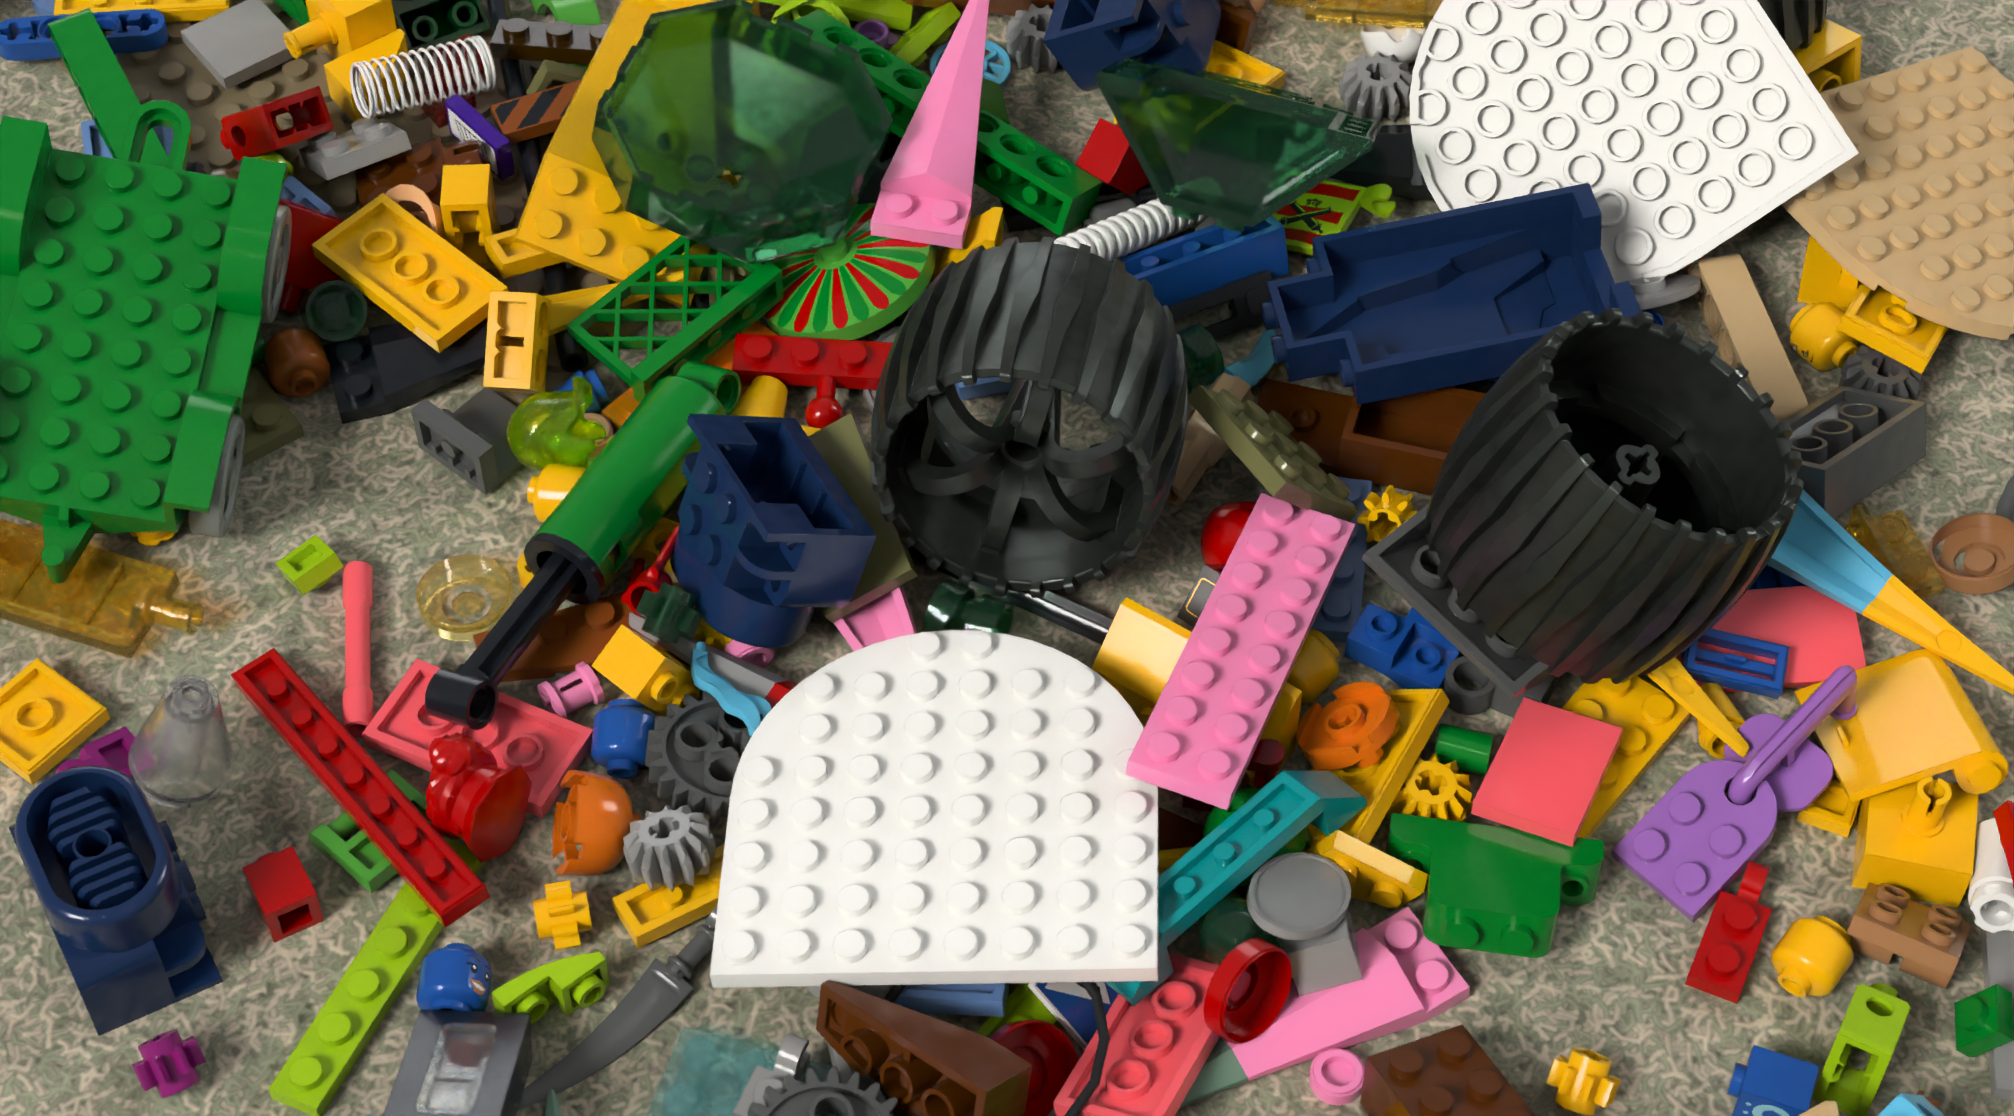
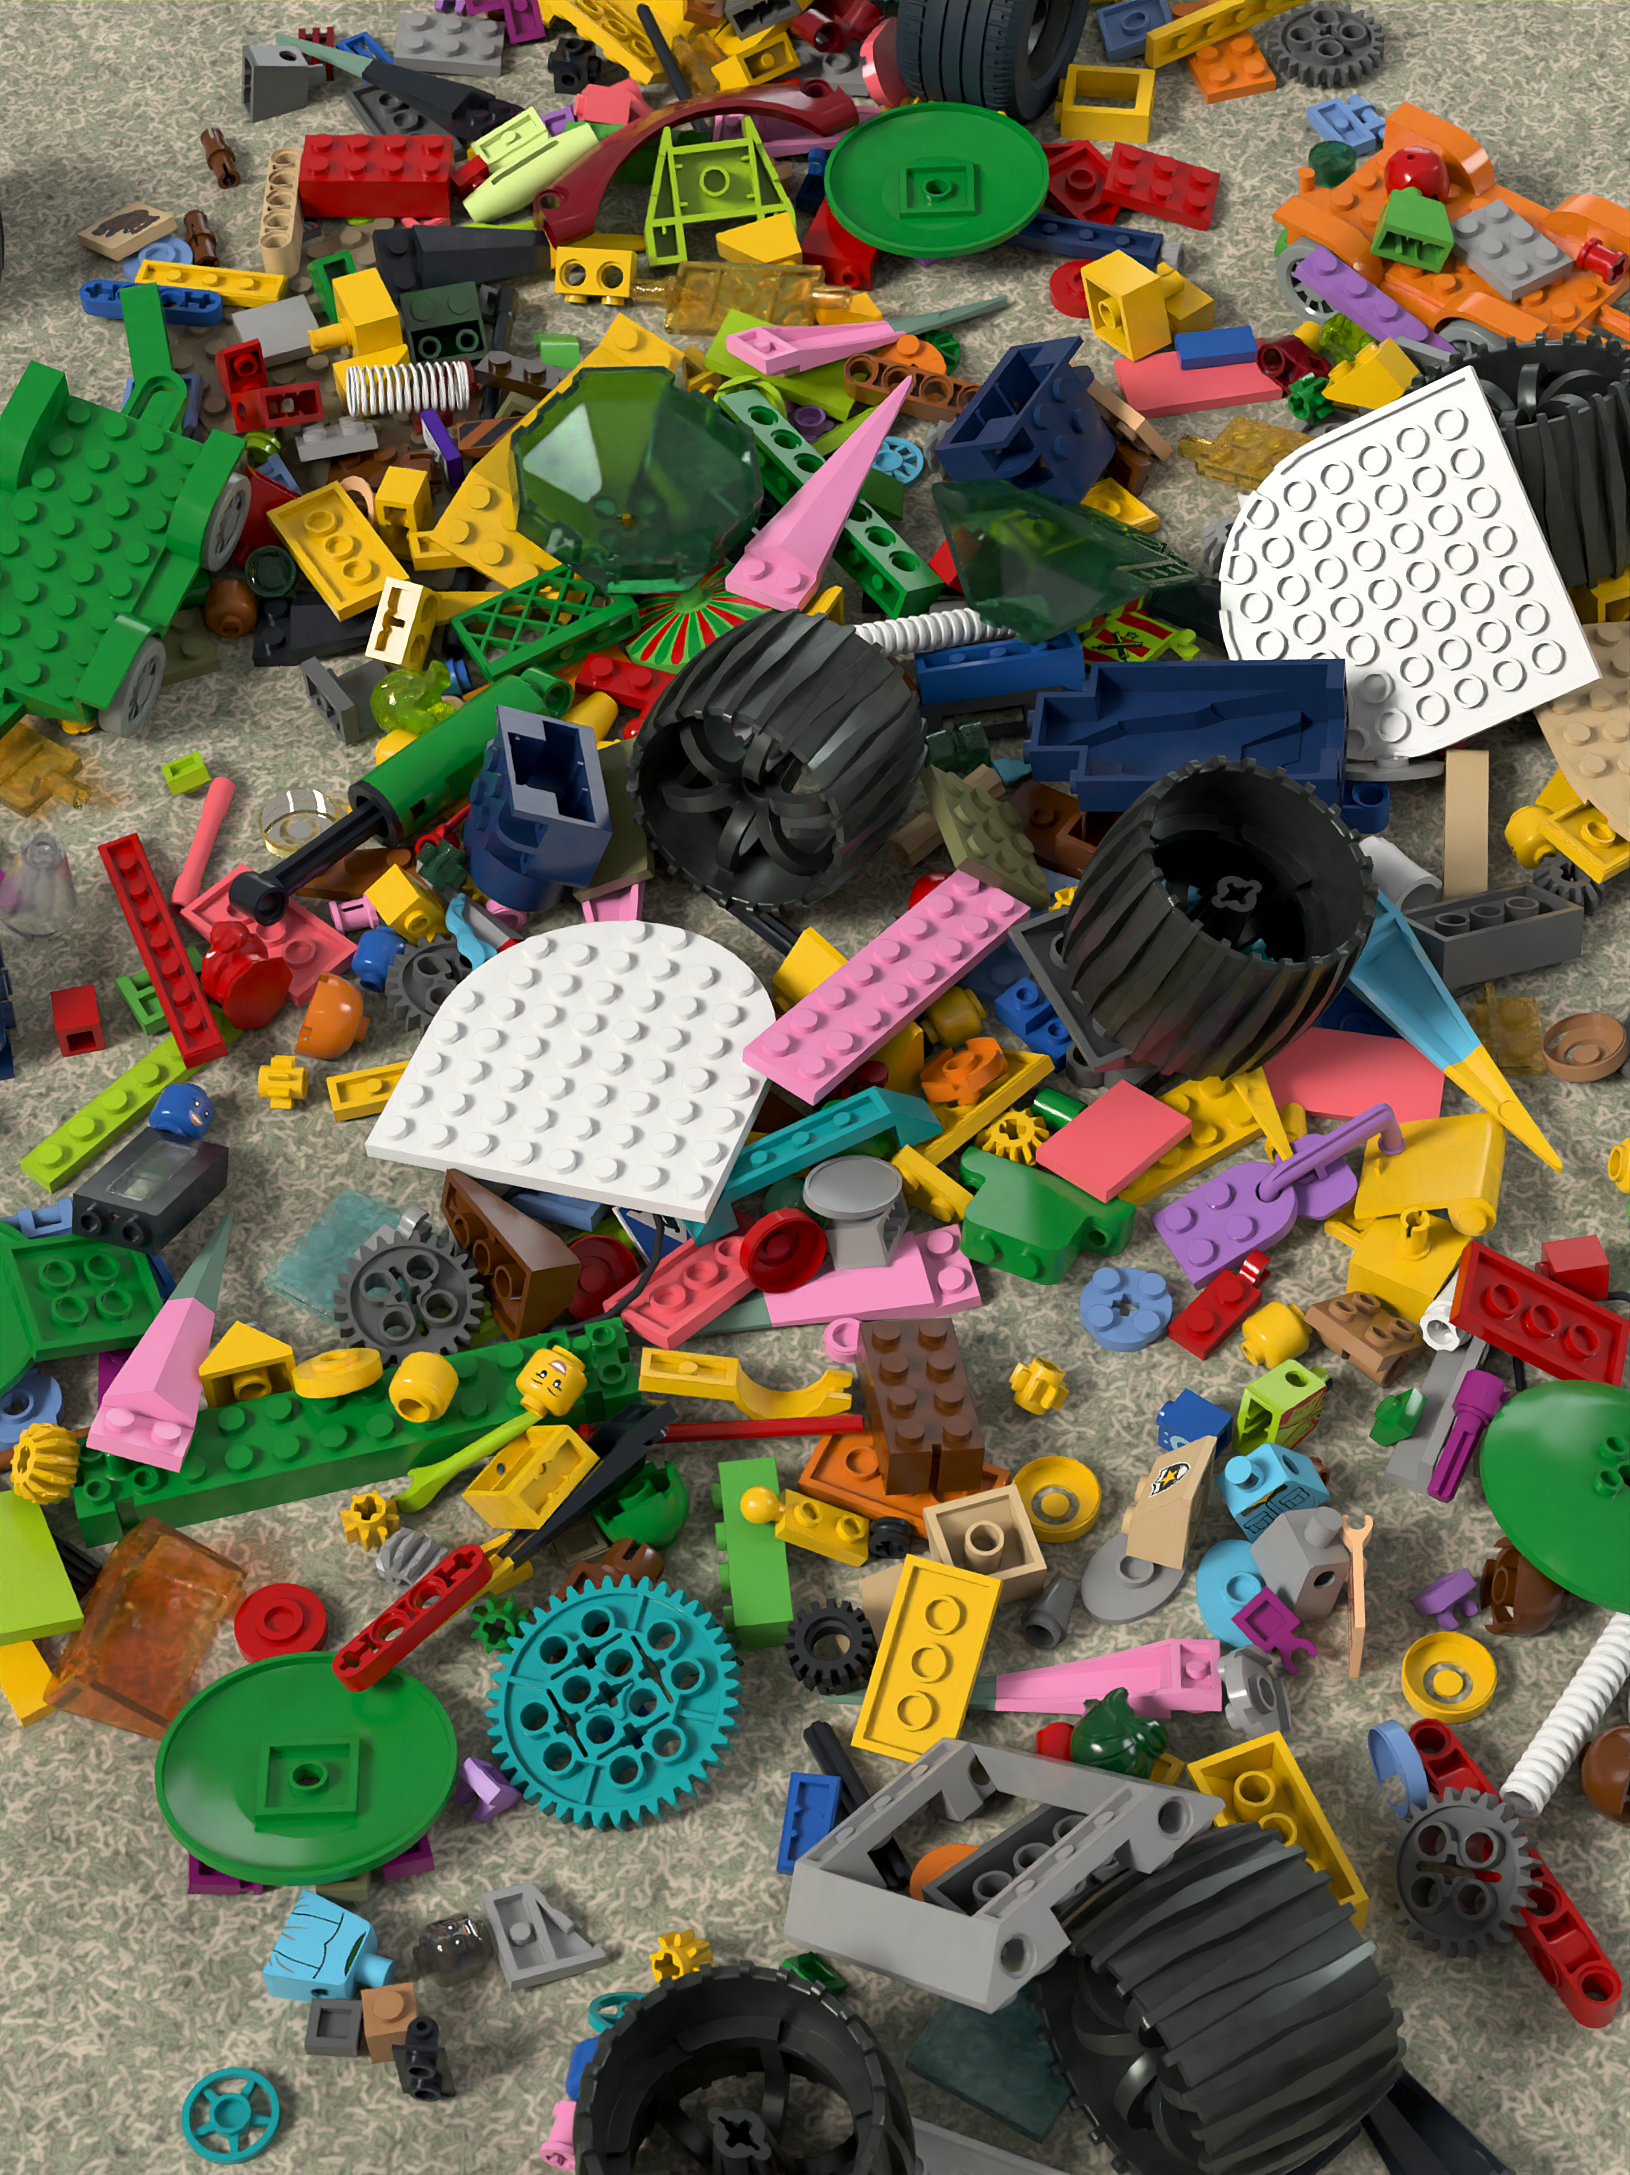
camera: 20 degrees right, 0 degrees up
(219, 90) = (241, 368): none -> red slope
(566, 982) = (268, 1132): lime slope -> none
(635, 1017) = (316, 1171): dark grey sword -> none
(669, 847) = (378, 1047): light grey gear -> none
(957, 608) = (689, 912): clear green wheel -> none
(1638, 936) = (1125, 1285): none -> medium blue plate
(1735, 680) = (1311, 1103): blue tile -> none

